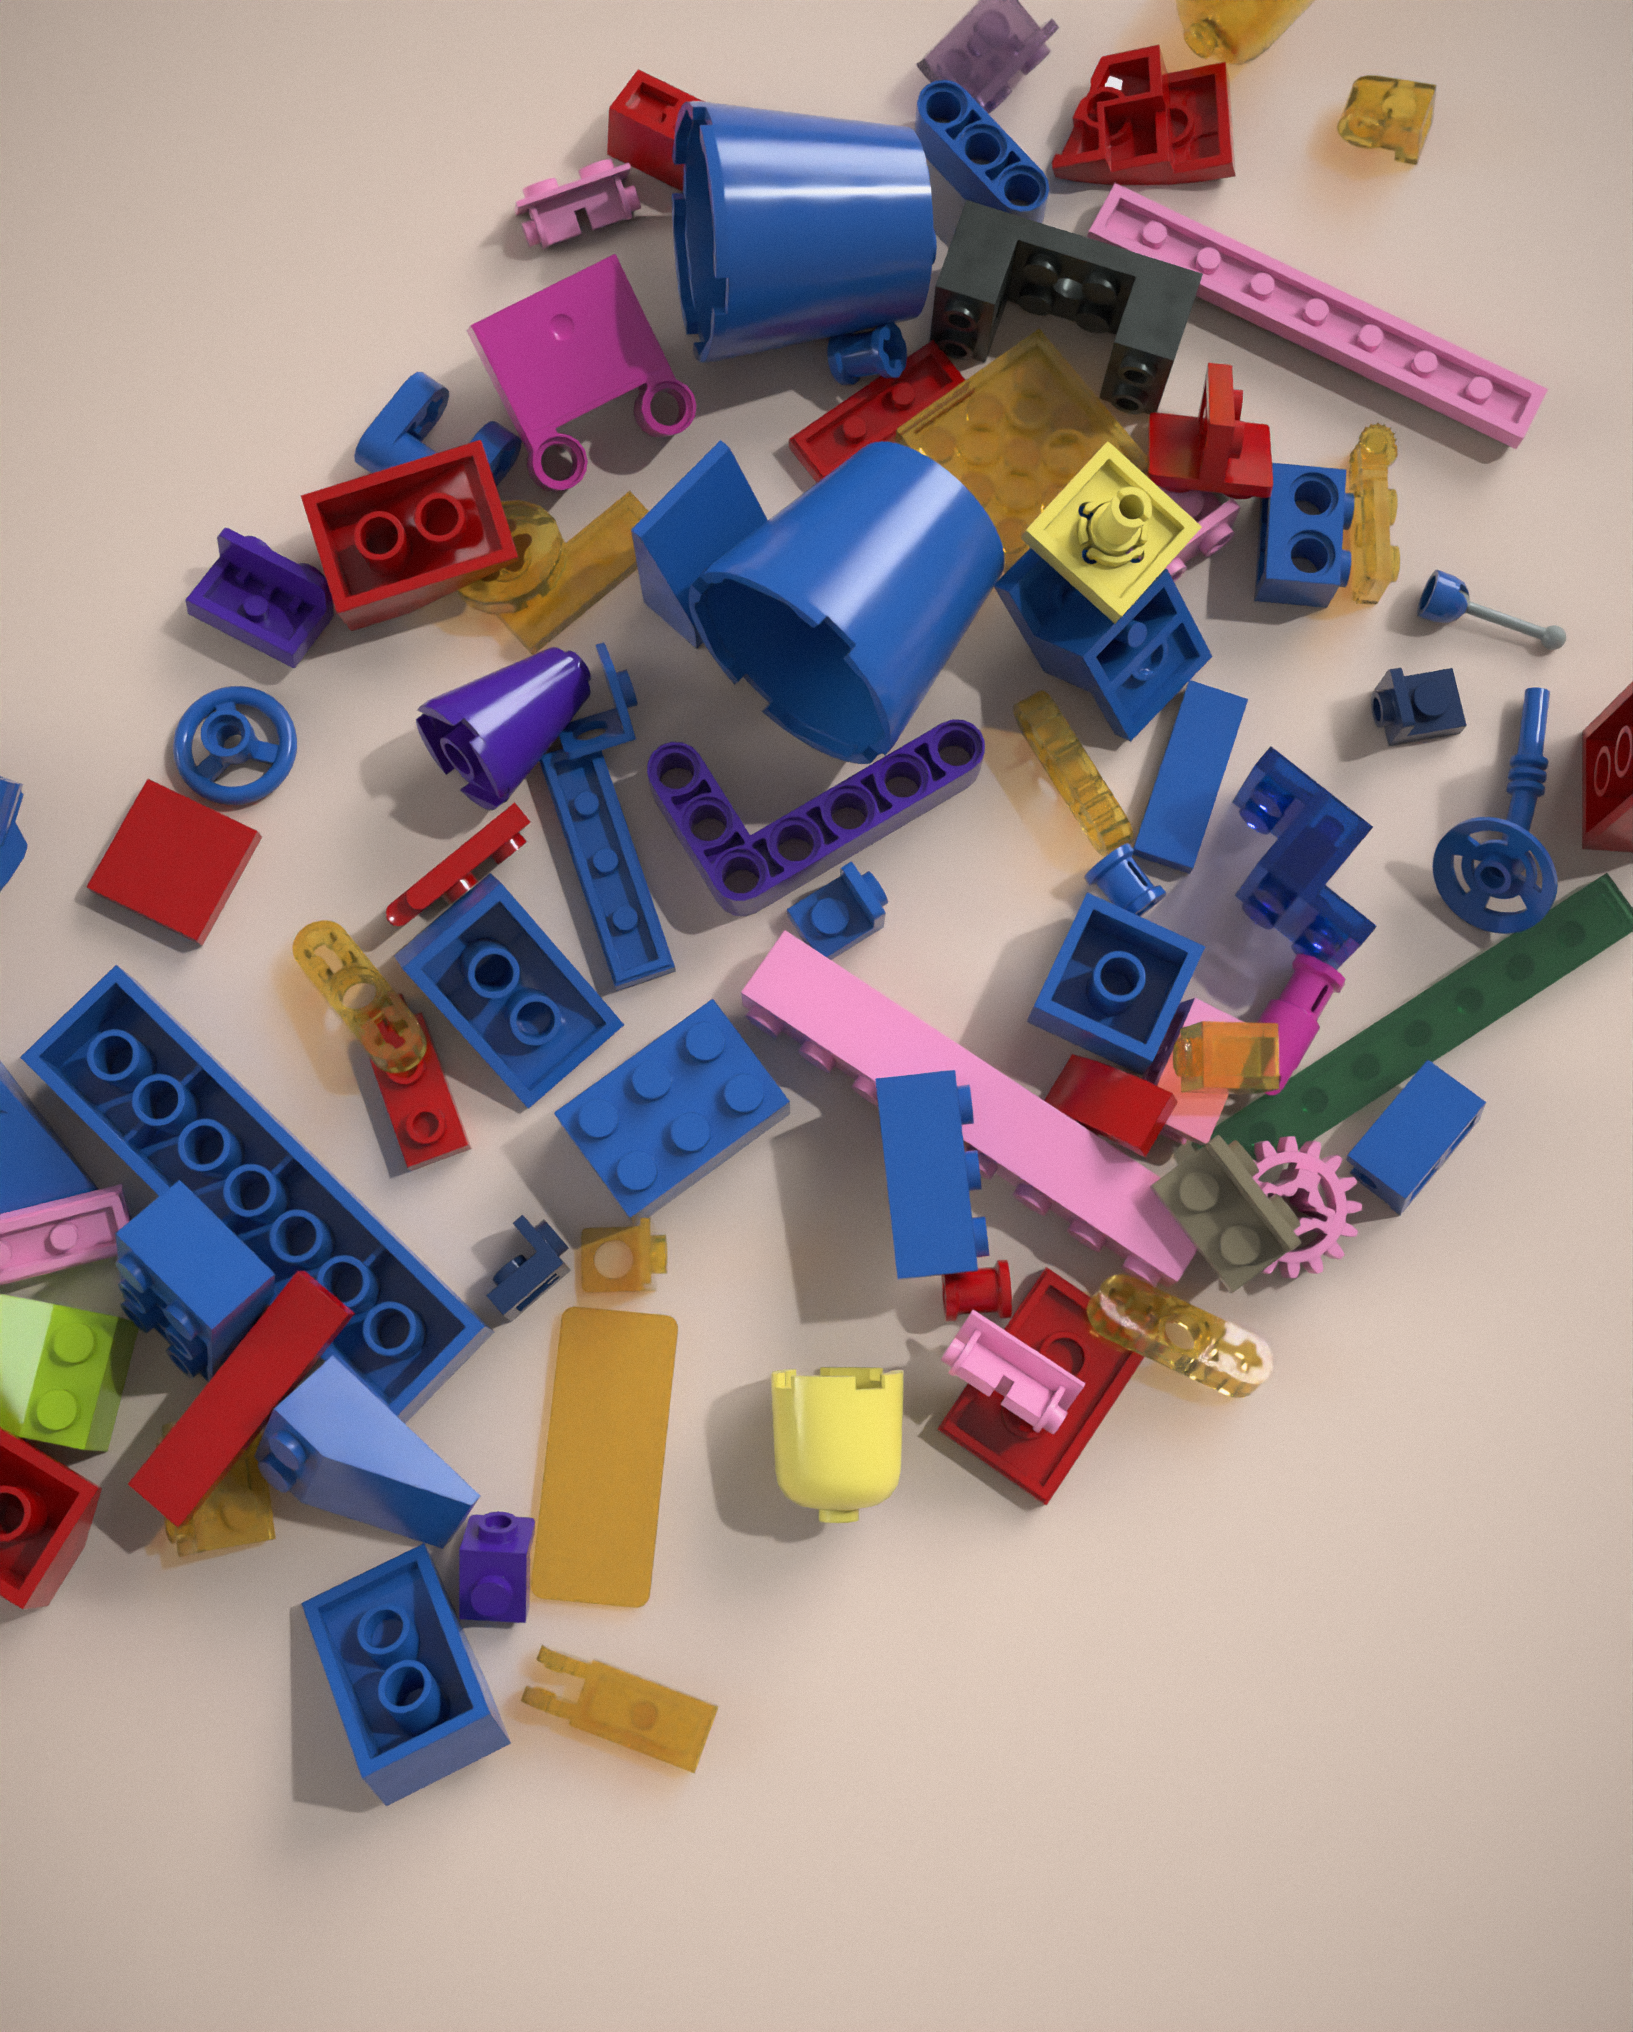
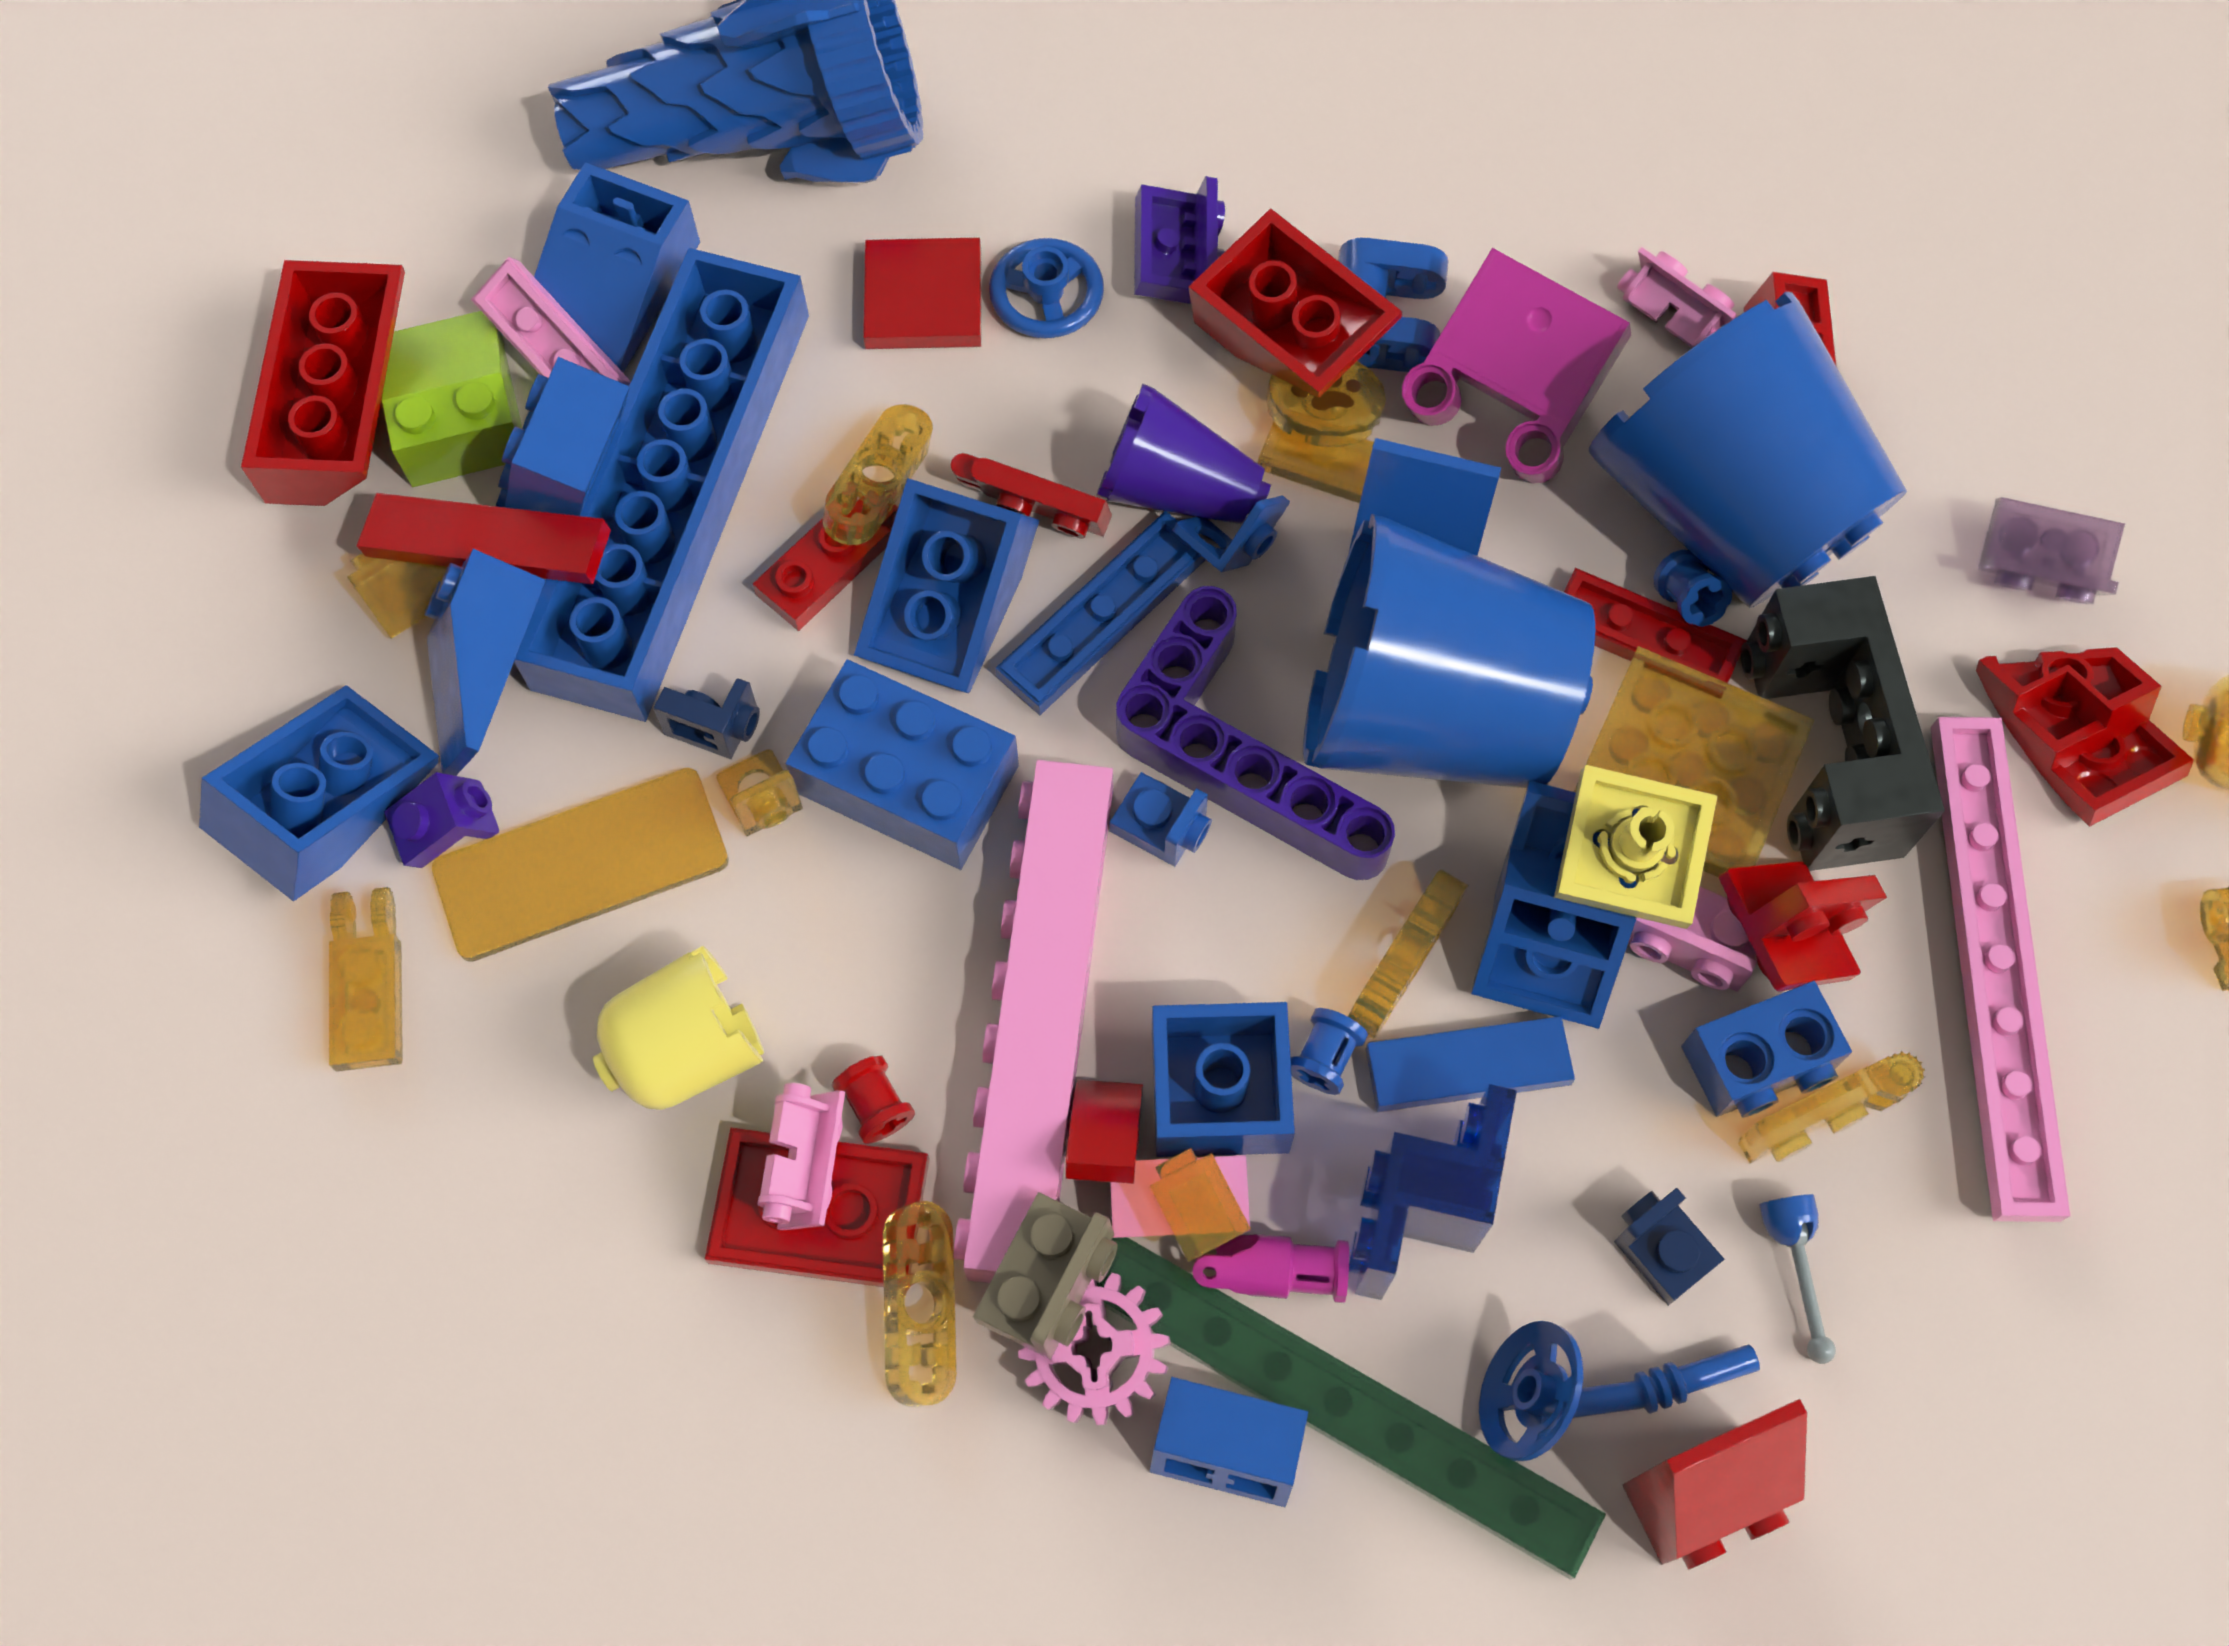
camera: 65 degrees right, 10 degrees down
(930, 1174) = (945, 987): blue brick -> none
(977, 136) = (1958, 577): blue beam -> none

